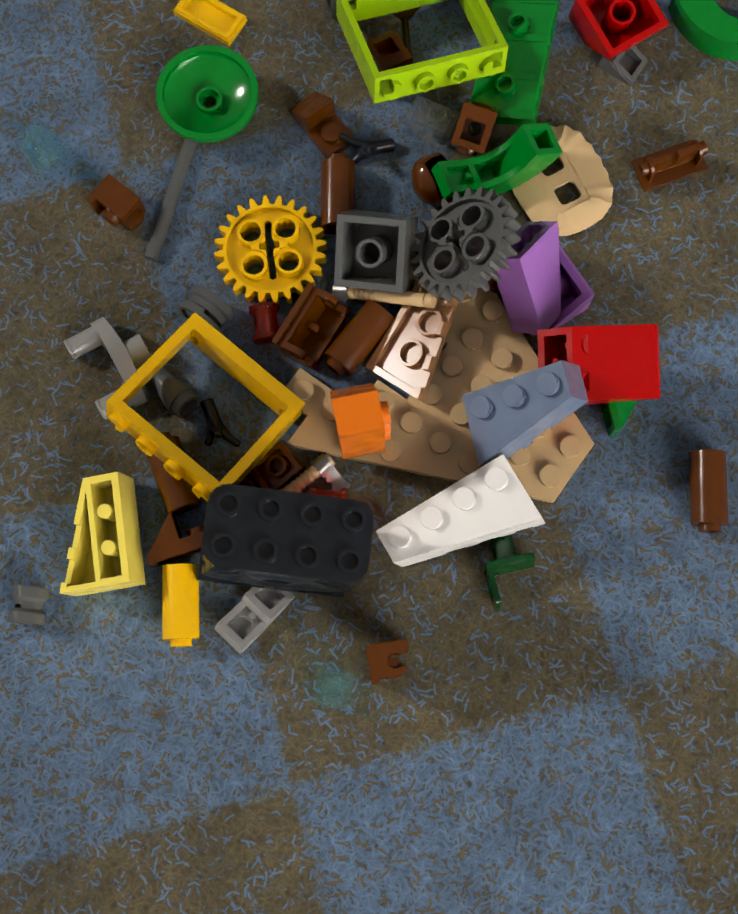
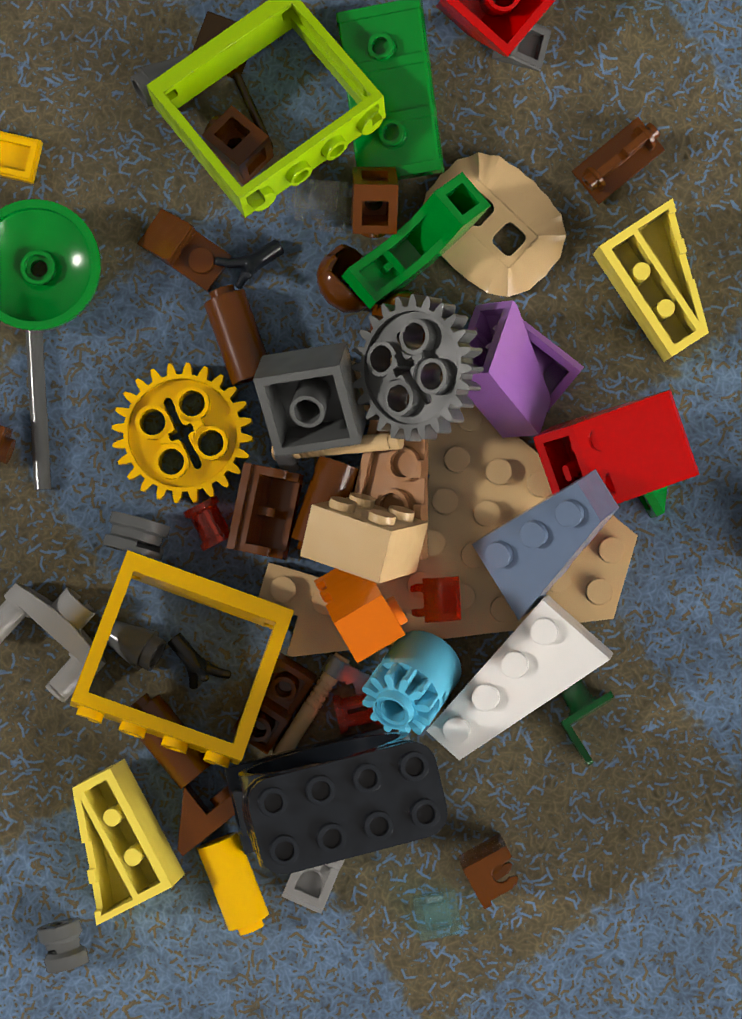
camera: 30 degrees left, 10 degrees up
(380, 360) = (364, 537): none -> tan brick
(384, 483) = (412, 682): none -> medium azure gear
(422, 433) = (440, 599): none -> clear red tile
(670, 254) = (655, 280): none -> light yellow wedge

